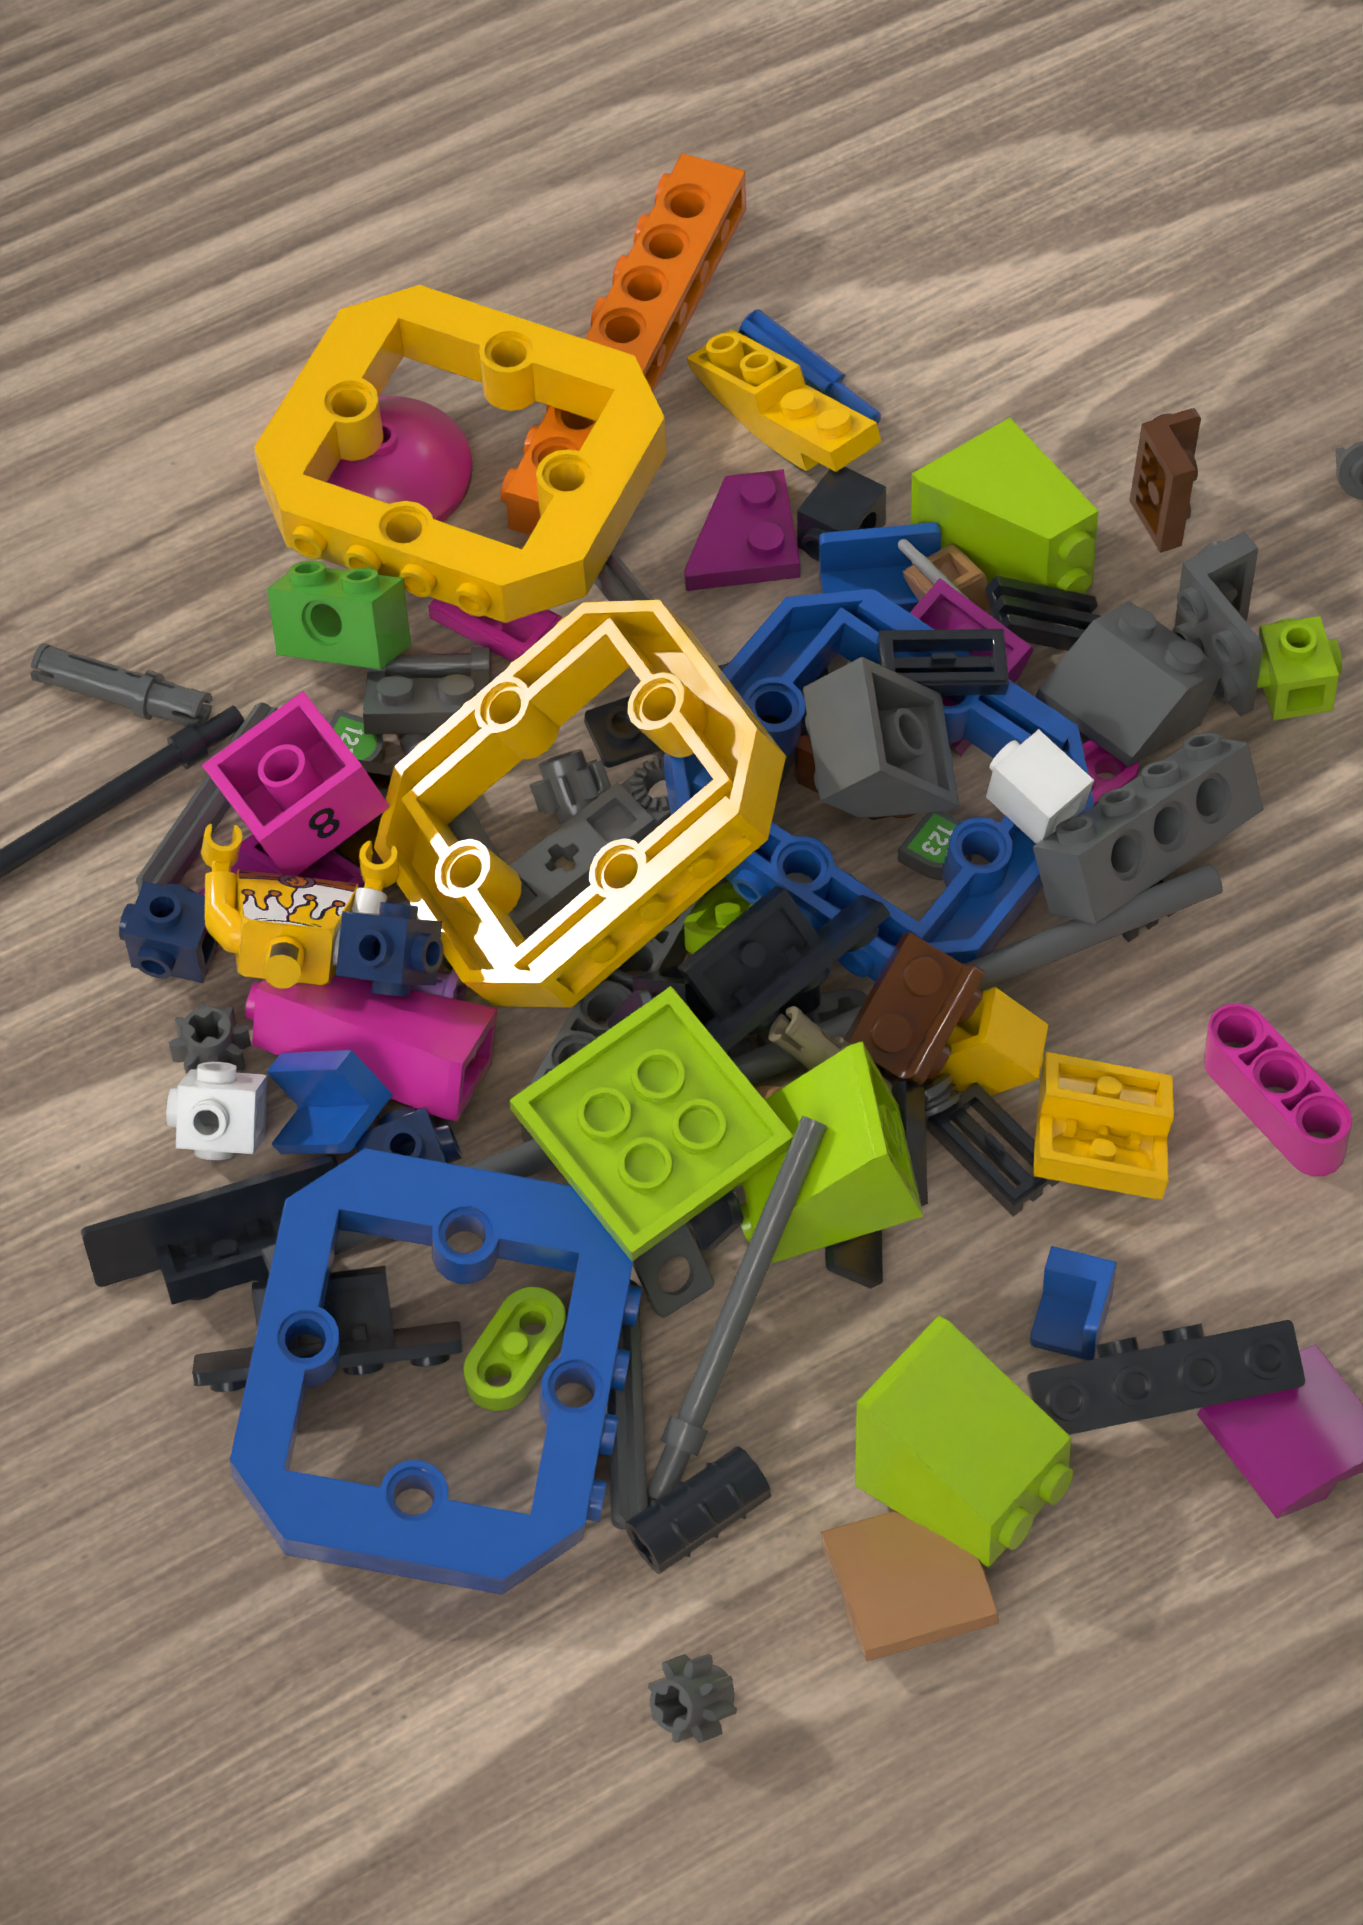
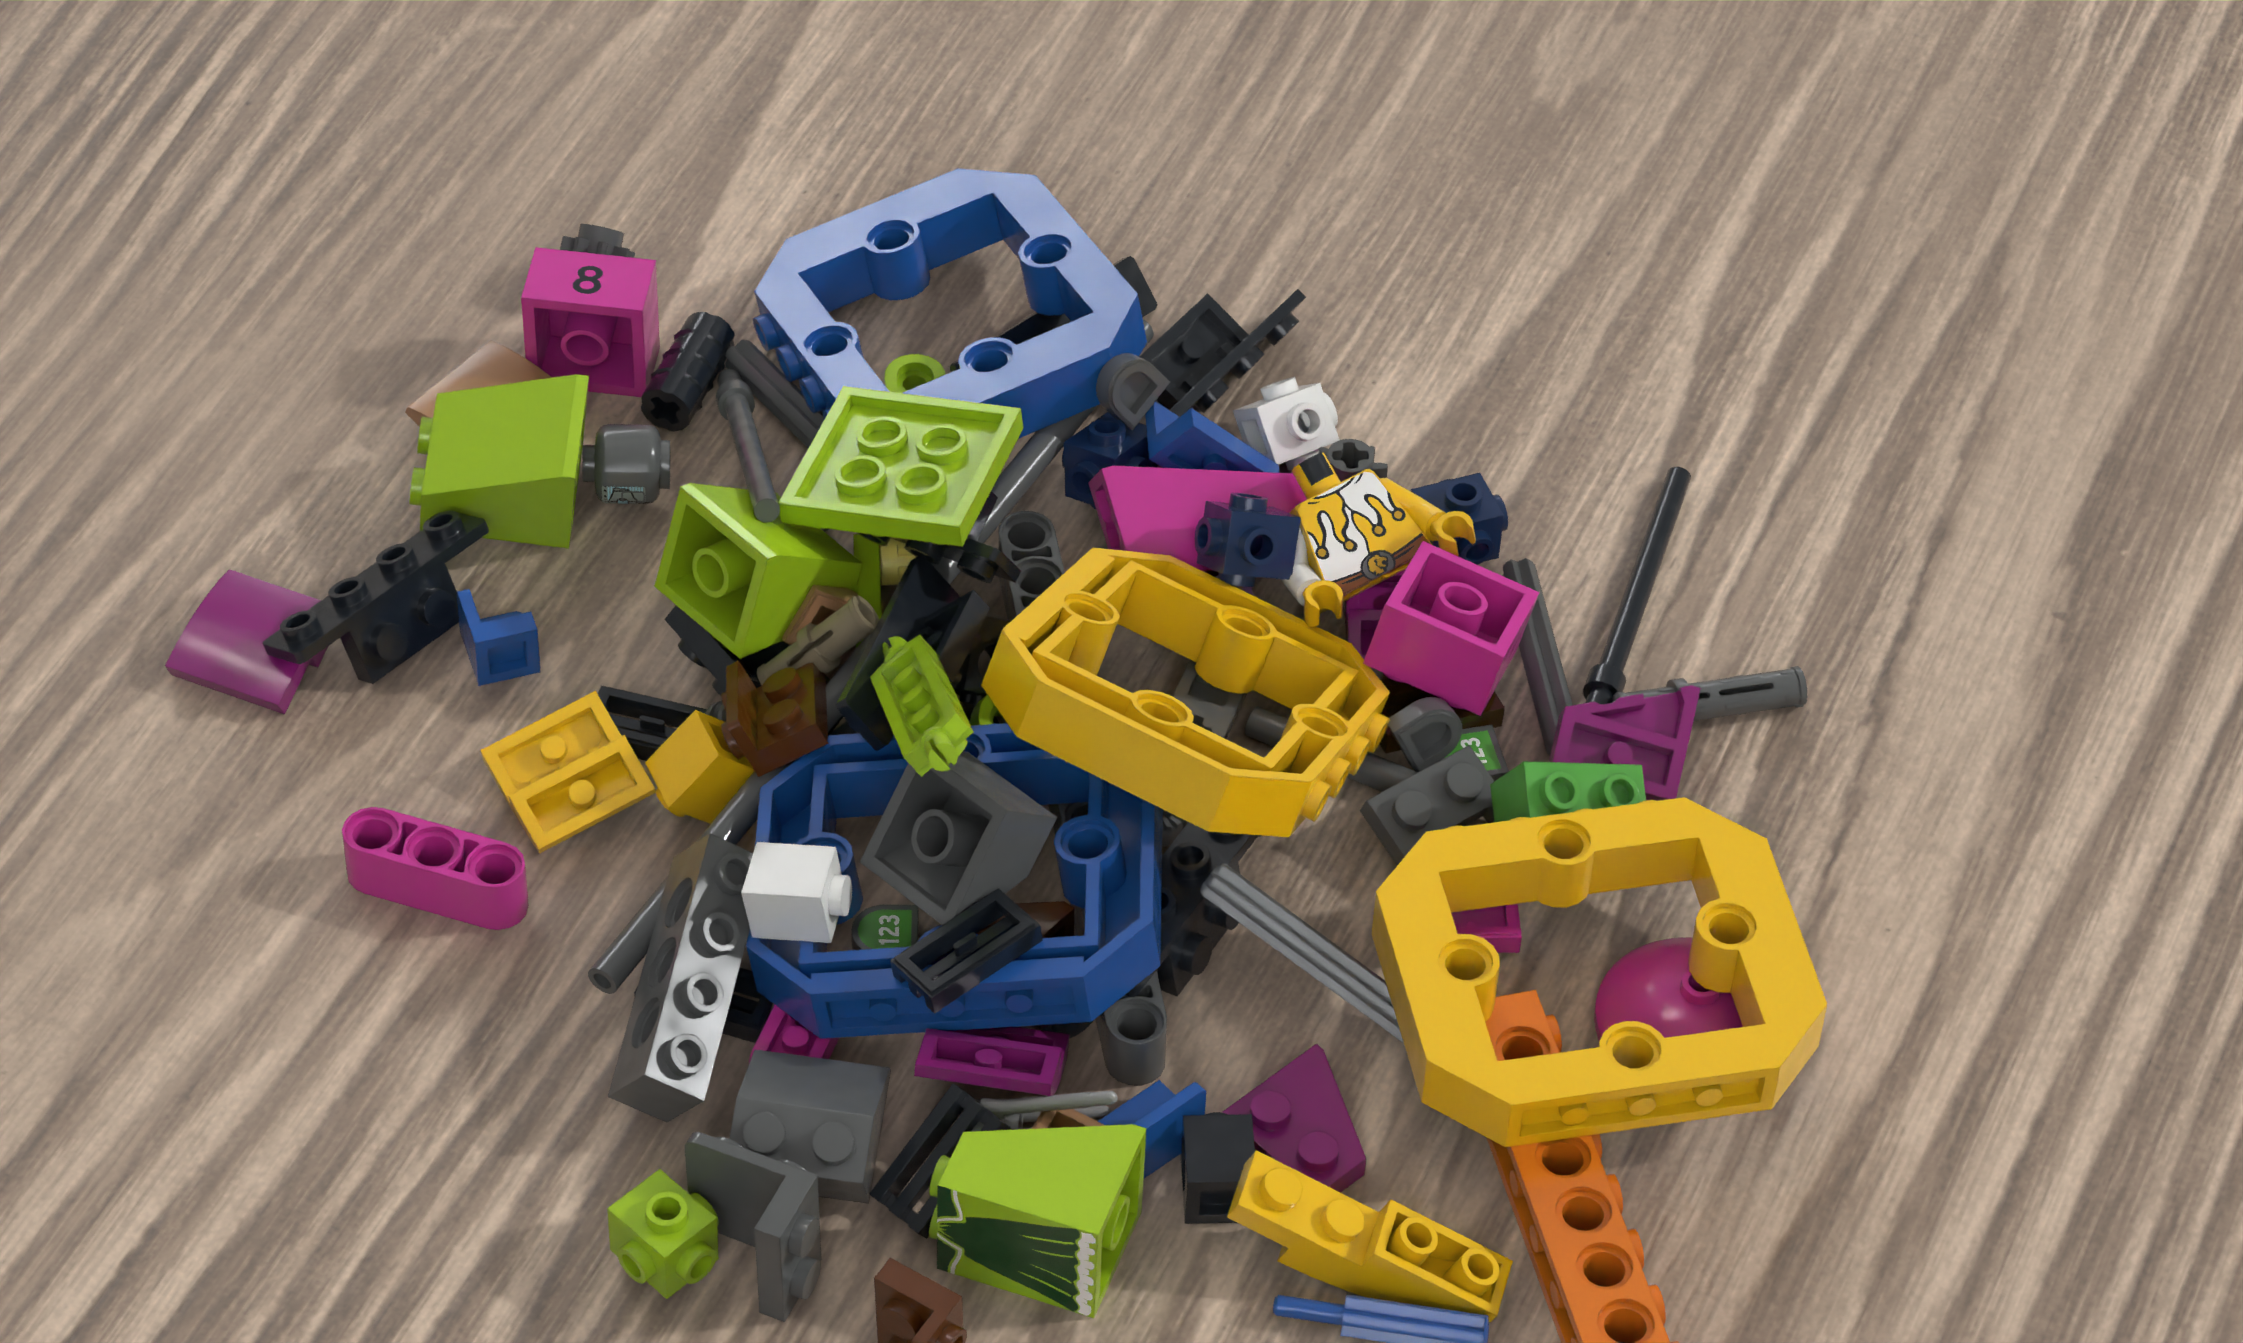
camera: 140 degrees right, 10 degrees down
(230, 663) = (1631, 732): none -> magenta wing
(348, 1141) = (1129, 387): none -> dark grey tile
(380, 744) = (1426, 731): none -> dark grey tile
(766, 1580) = (592, 318): none -> dark pink brick
(824, 1413) = (627, 463): none -> dark grey head
(851, 801) = (921, 705): none -> lime plate

